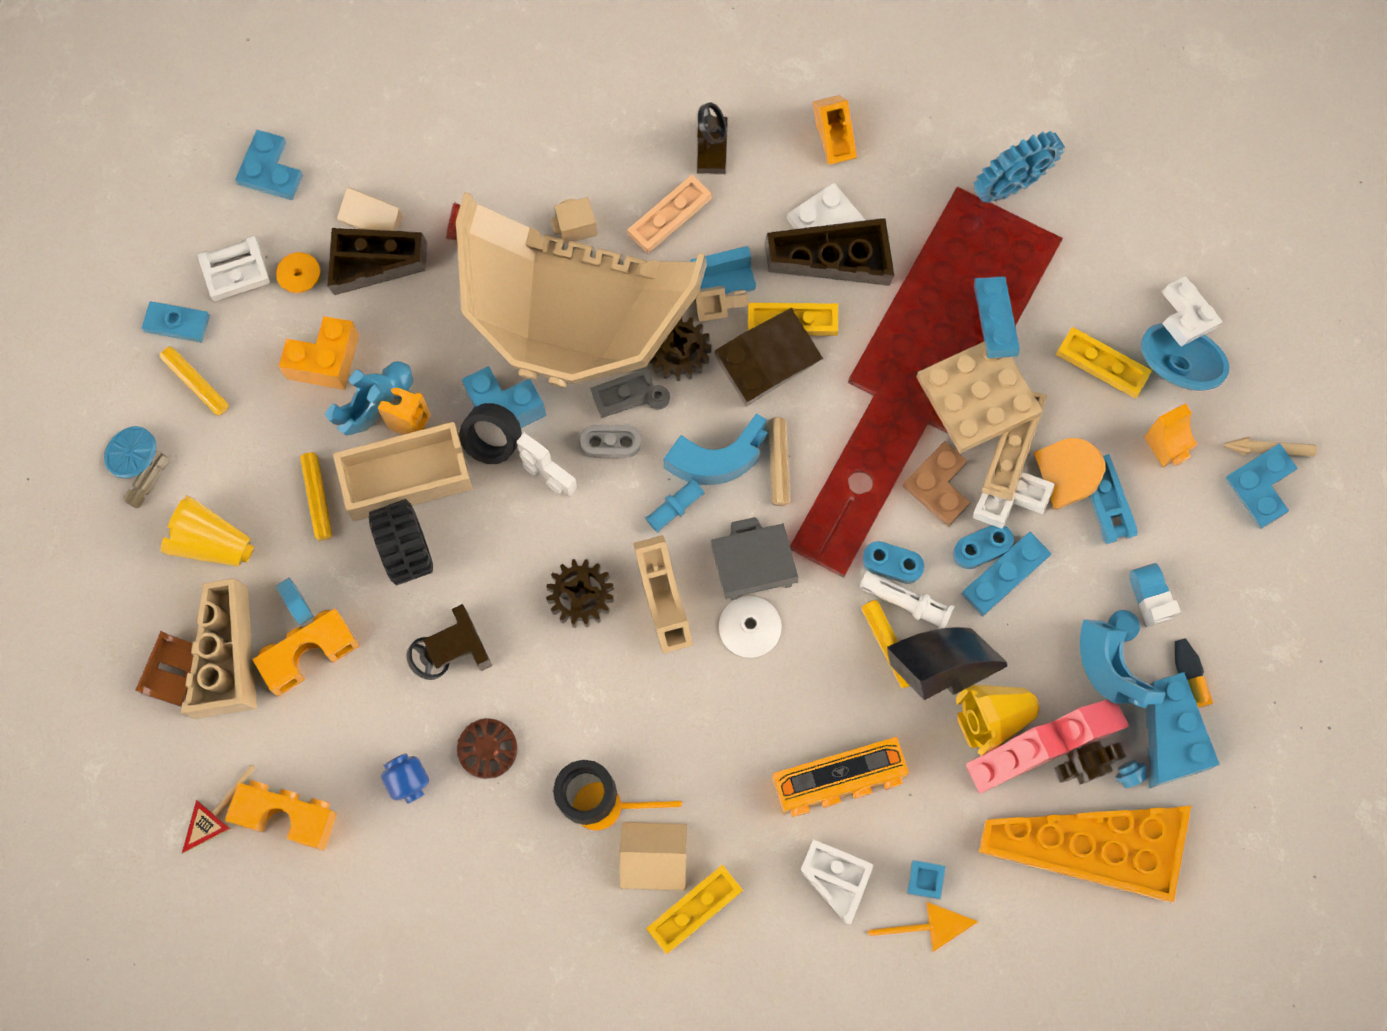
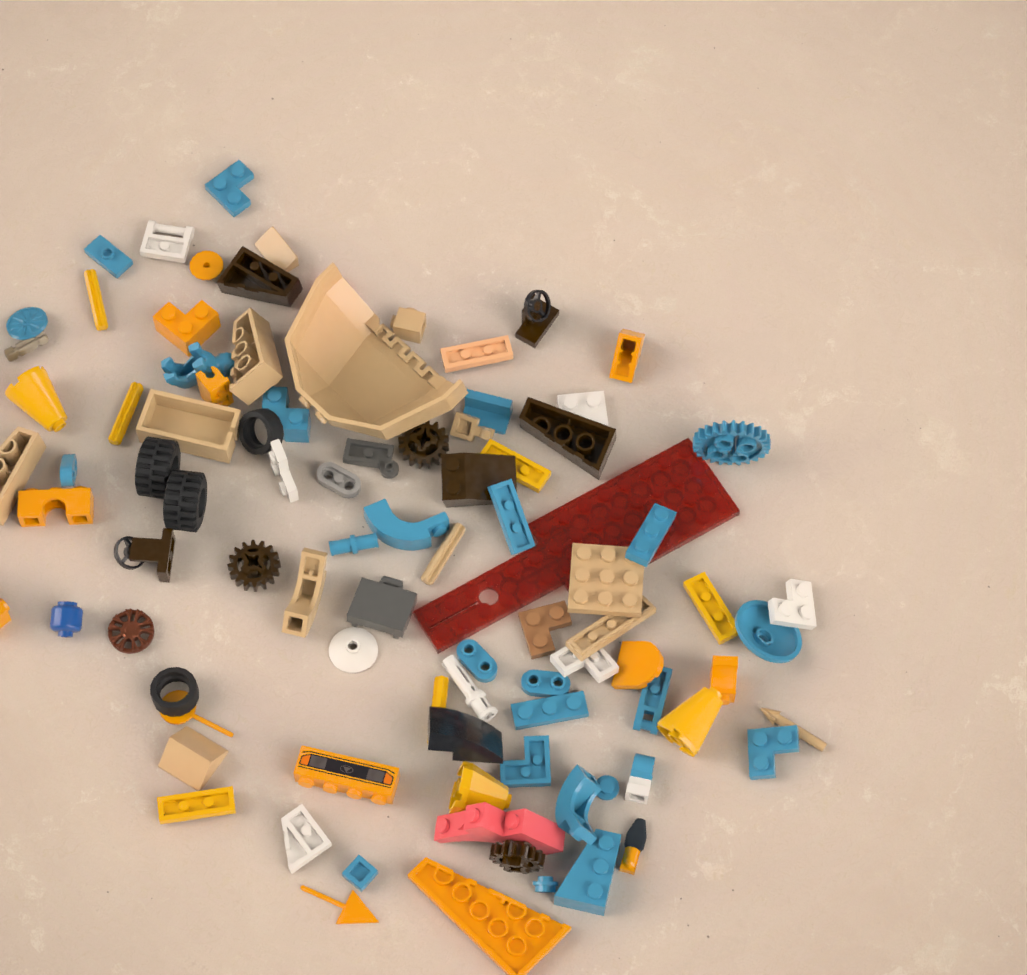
camera: 30 degrees right, 10 degrees down
(433, 353) = (254, 357): none -> tan wedge
(457, 563) = (185, 500): none -> black tyre
(831, 379) = (511, 516): none -> dark azure plate
(1035, 647) = (533, 770): none -> dark azure plate
(1172, 500) = (691, 720): none -> yellow cone

